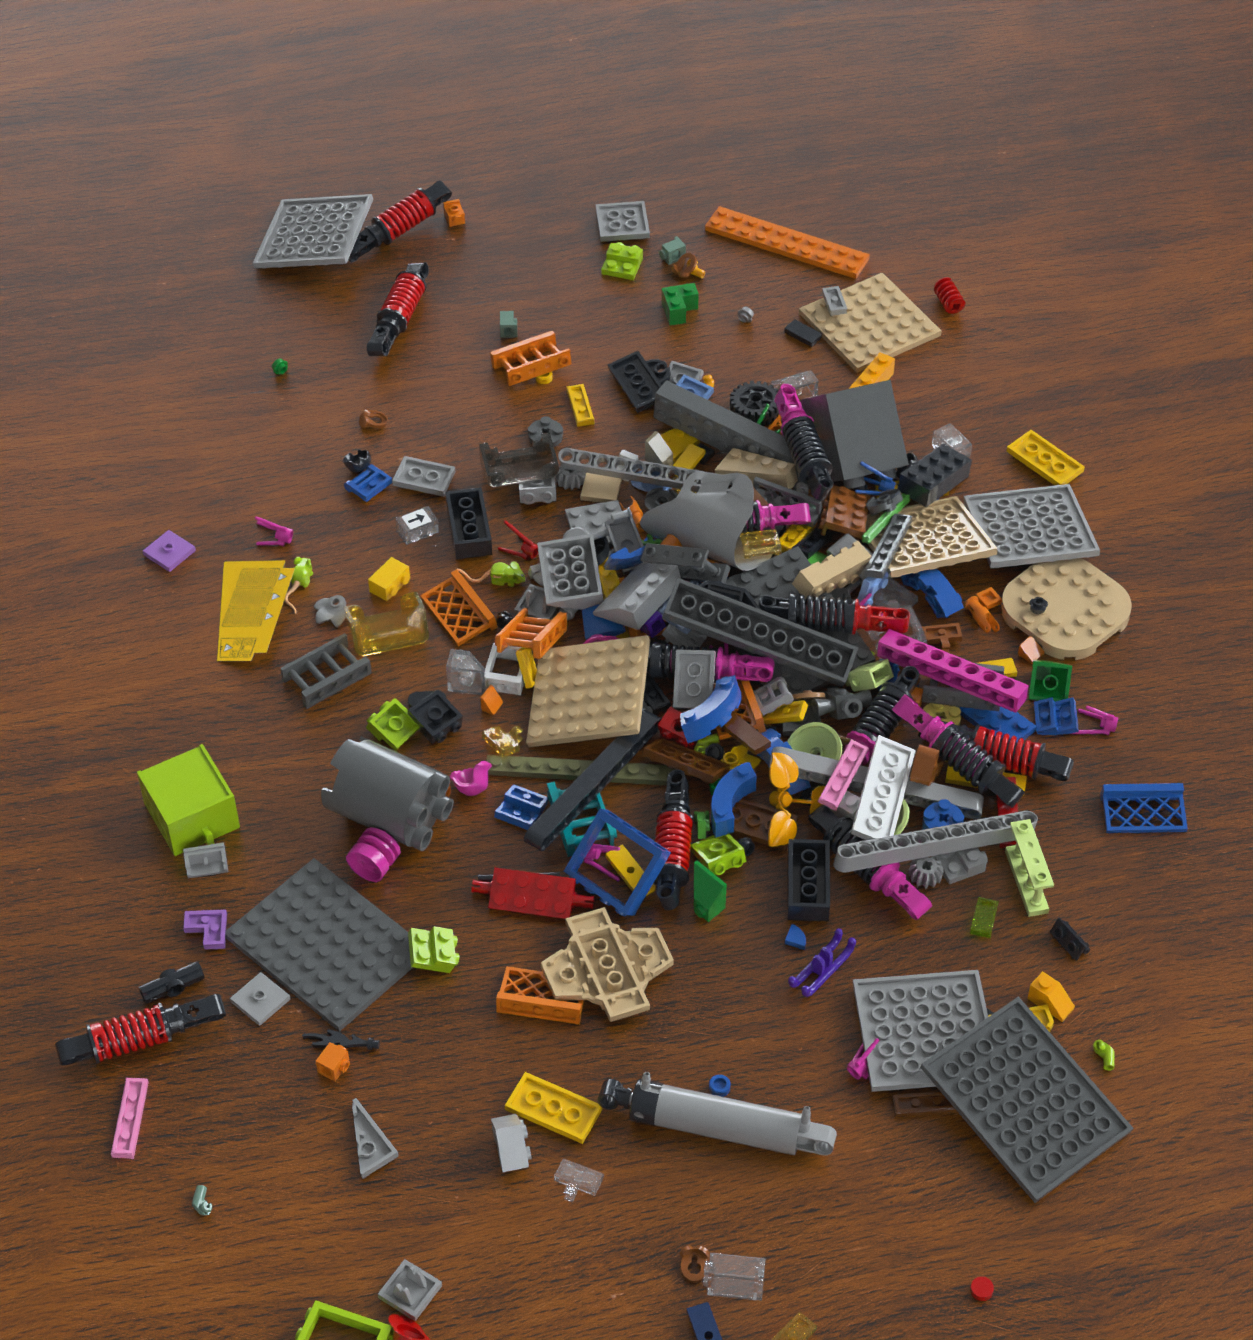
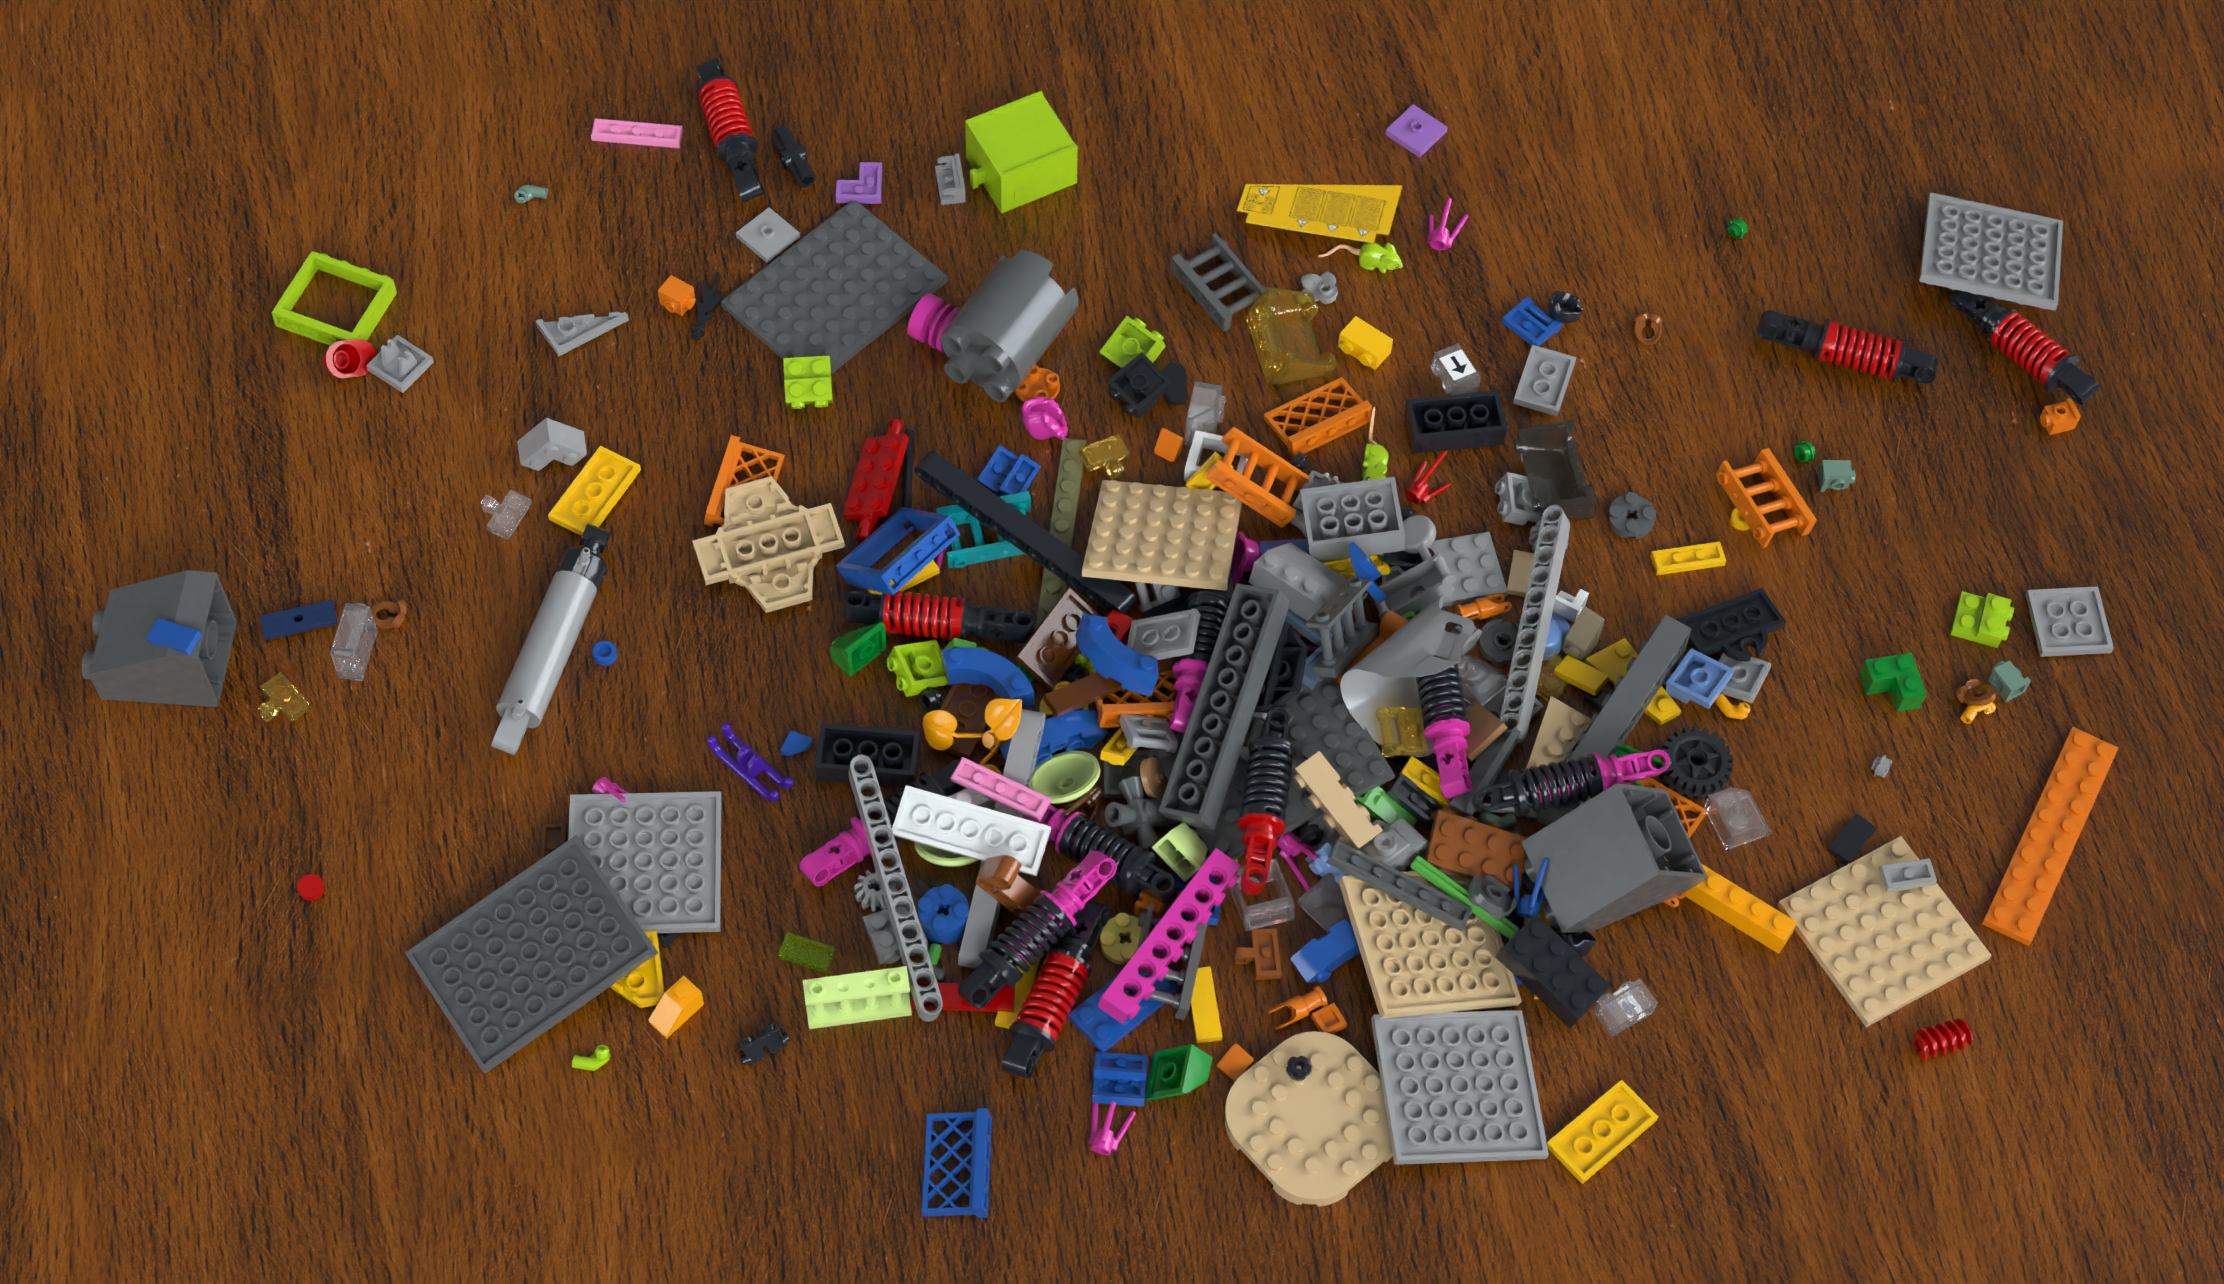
camera: 90 degrees right, 10 degrees up
(486, 340) = (1804, 452): none -> green plate

